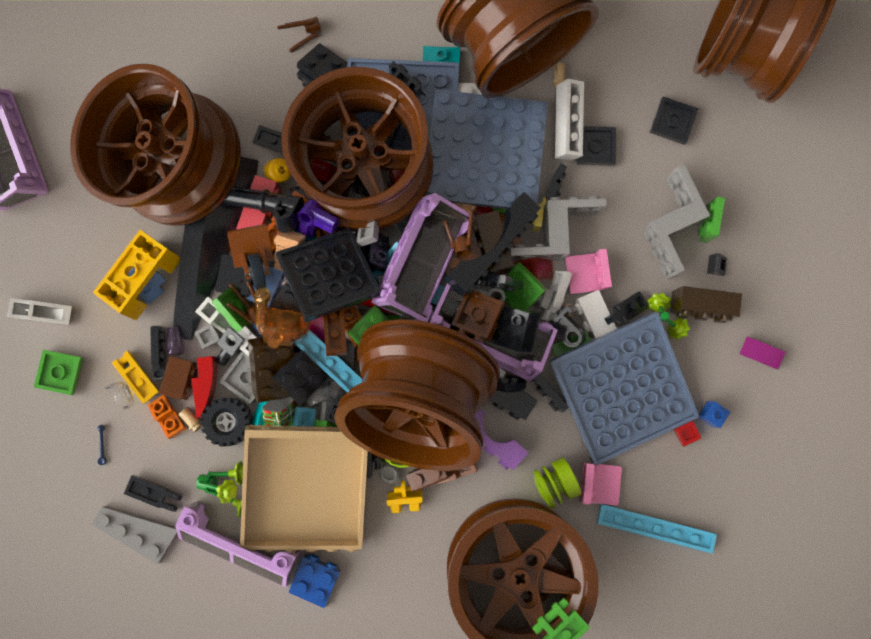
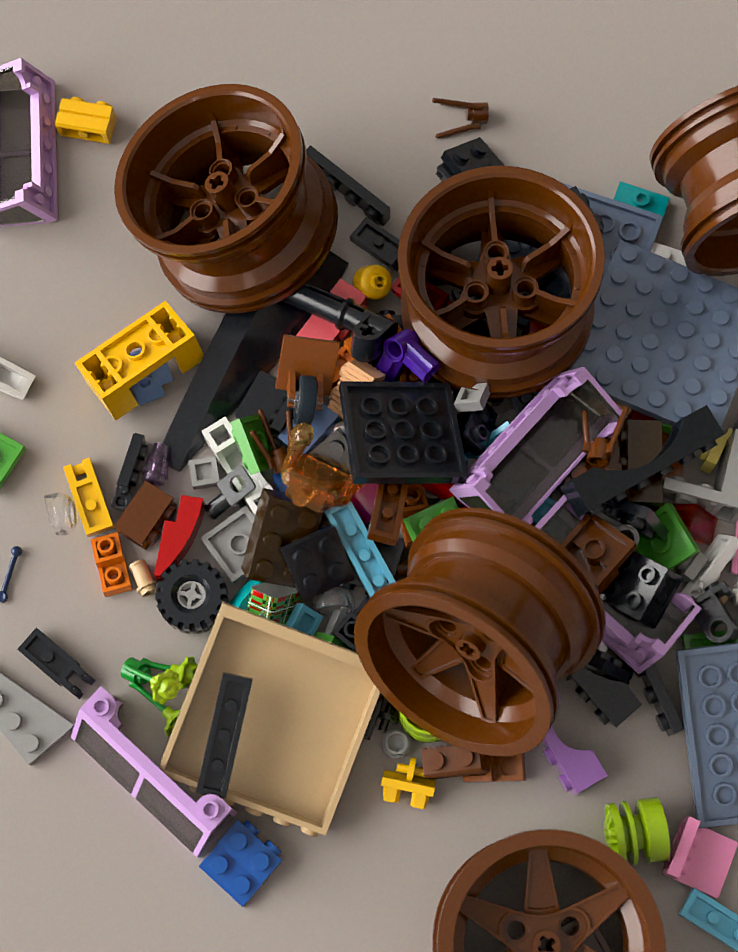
camera: 20 degrees right, 10 degrees down
(43, 113) = (86, 120): none -> yellow brick
(246, 110) = (353, 191): none -> black plate
(275, 512) = (224, 735): none -> black plate

